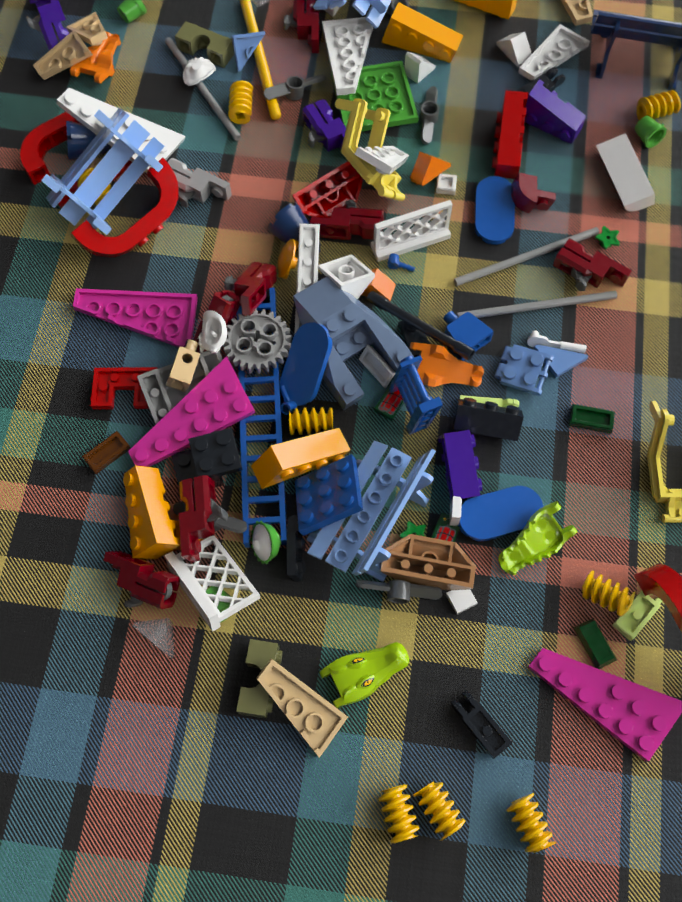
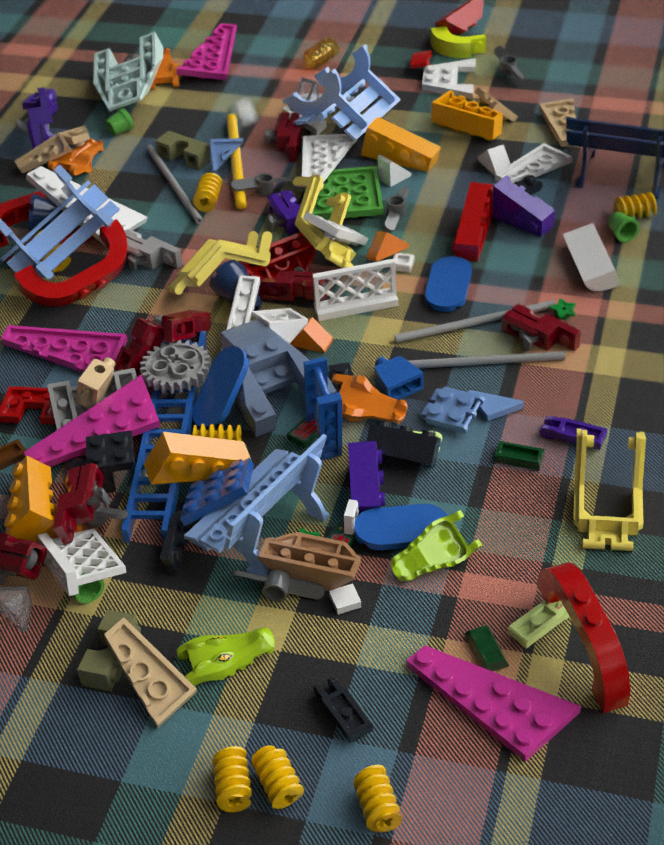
camera: 10 degrees right, 25 degrees down
(197, 70) = (172, 168): white hat -> none
(213, 332) = (131, 350): white hat -> none
(265, 541) = (145, 532): piece -> none
(282, 190) = (214, 252): none -> light yellow piece
(287, 258) = (223, 308): light orange dish -> none
(288, 405) = (196, 421): blue hand -> none
(377, 366) = (294, 397): white tile -> none
(393, 263) = (334, 321): blue hand -> none
(456, 346) = (380, 380): black piece -> none
(527, 196) = (483, 271): dark red brick -> none
(535, 339) = (476, 386): white piece -> none
(606, 594) = (504, 596): yellow piece -> none
(638, 389) = (566, 428): none -> dark purple hinge

